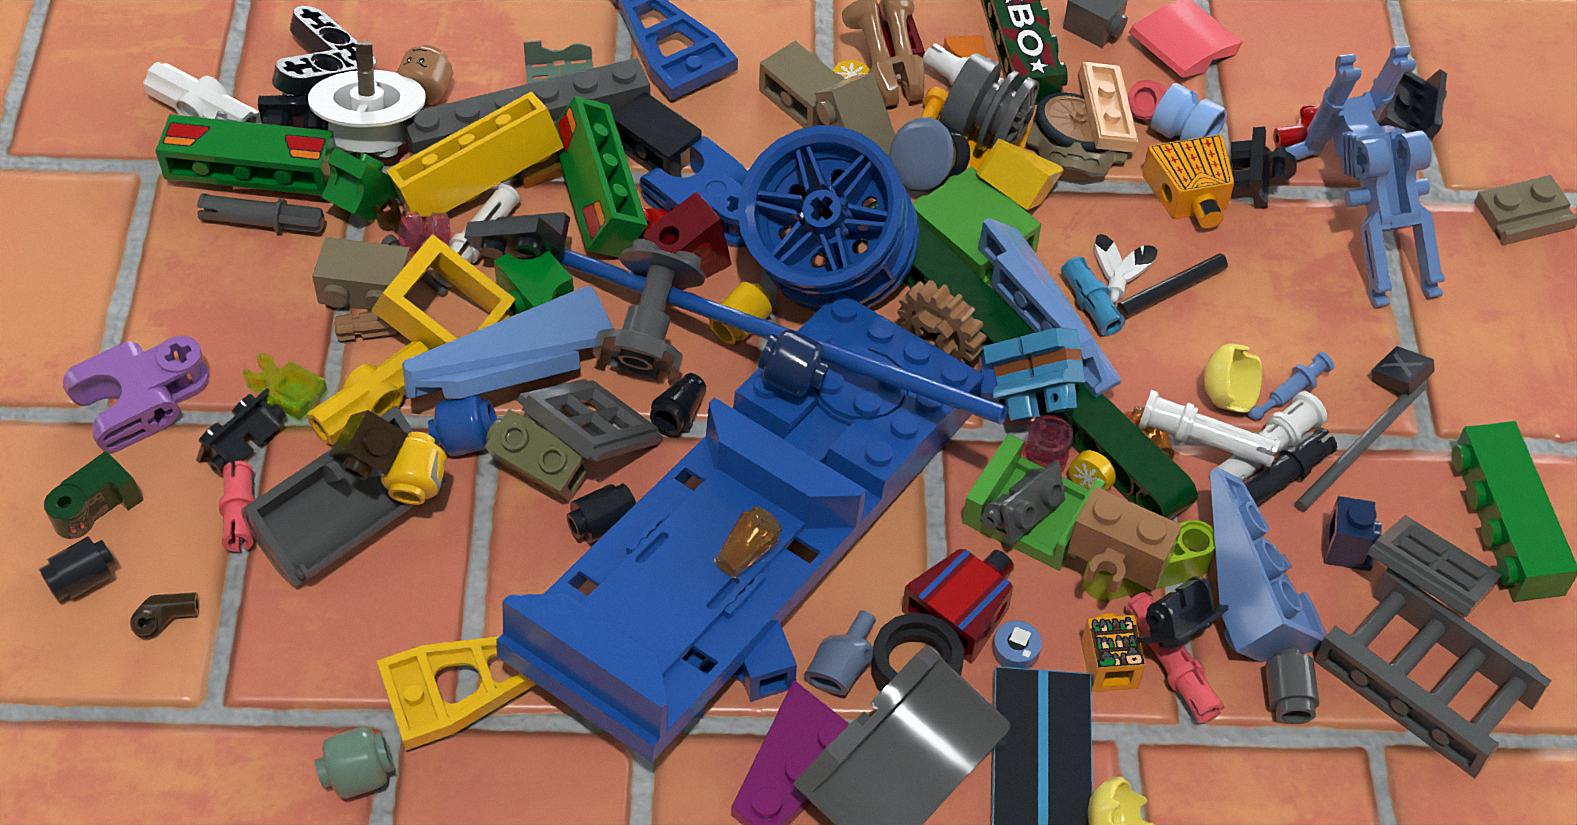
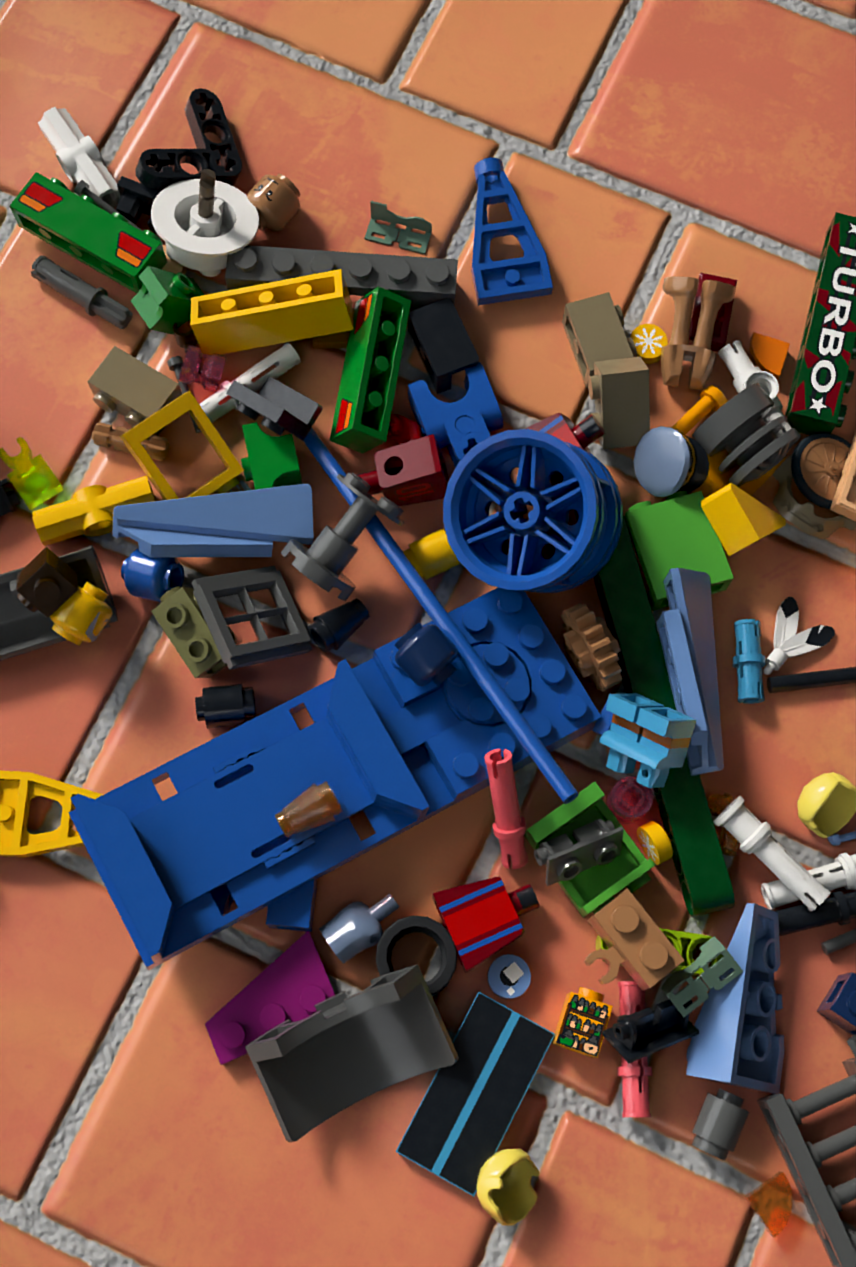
camera: 25 degrees right, 20 degrees up
(945, 499) = (509, 823): none -> coral pin
(1209, 549) = (711, 975): none -> sand green piece
(1381, 739) = (772, 1203): none -> clear orange tile

